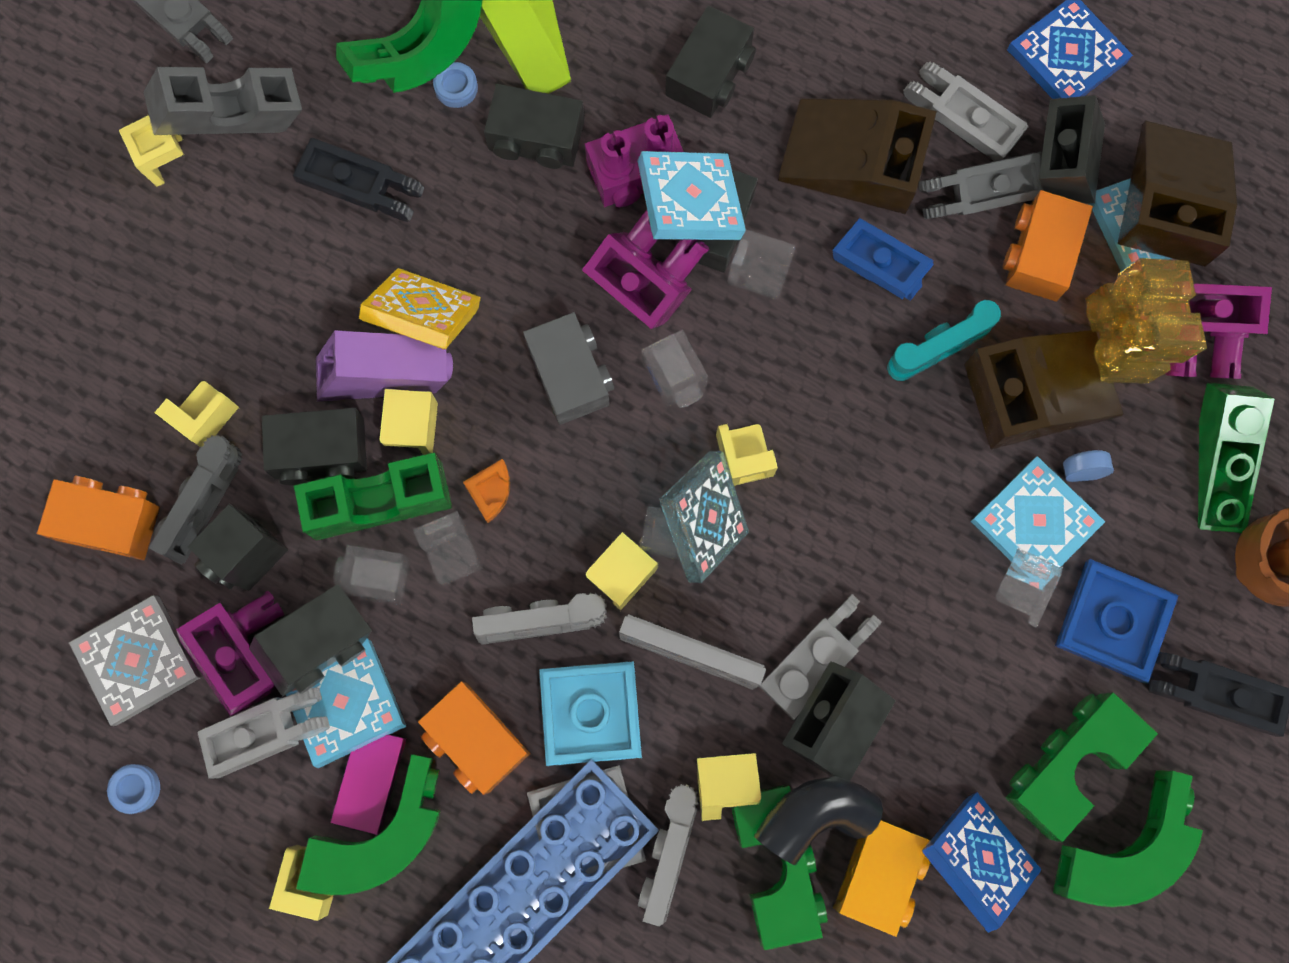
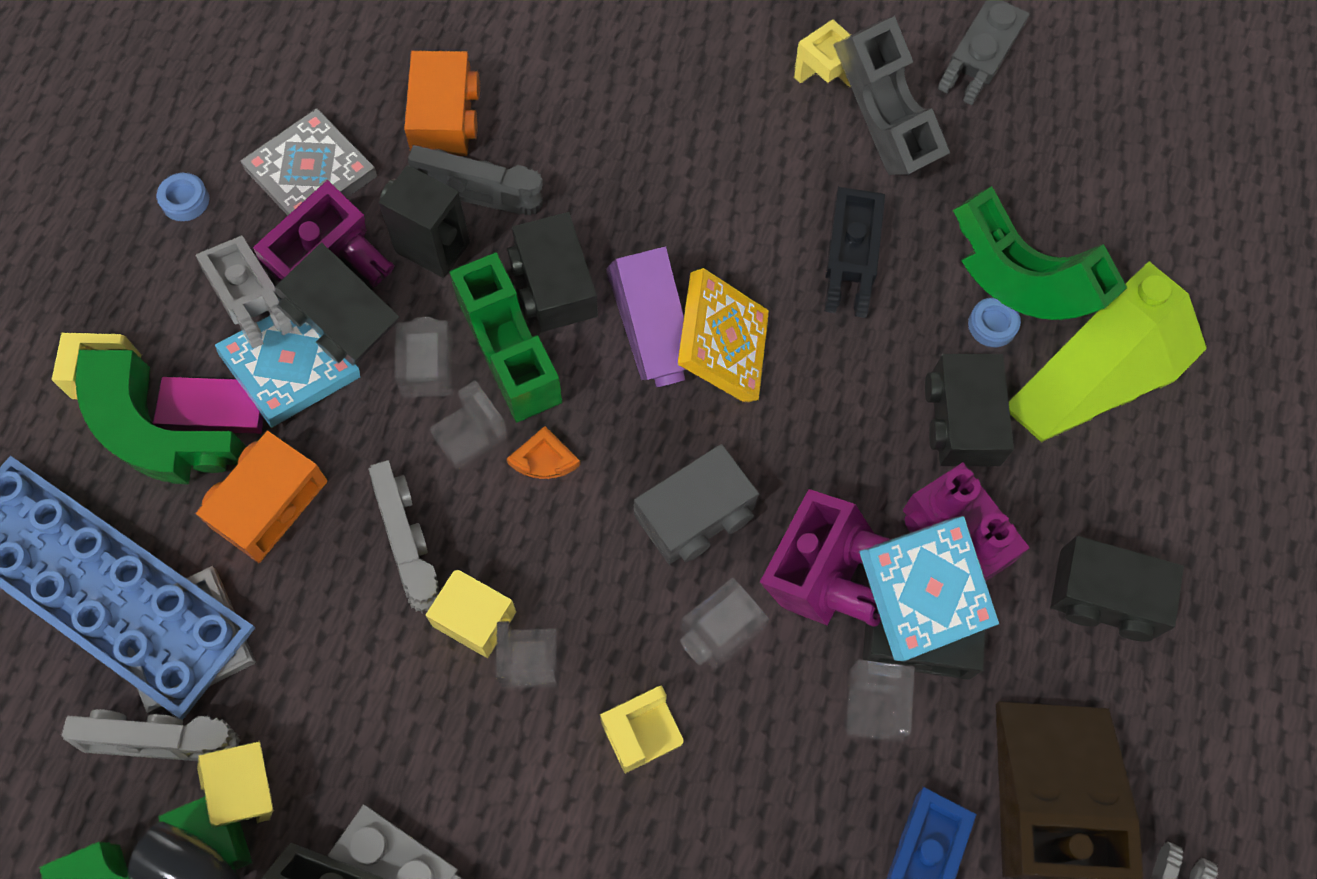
camera: 75 degrees right, 10 degrees down
(200, 414) = (562, 165): light yellow panel -> none
(409, 419) = (597, 355): light yellow panel -> none
(590, 713) = (308, 617): medium azure tile -> none
(692, 652) = (380, 709): light grey tile -> none
(704, 516) = (544, 688): clear light blue tile -> none

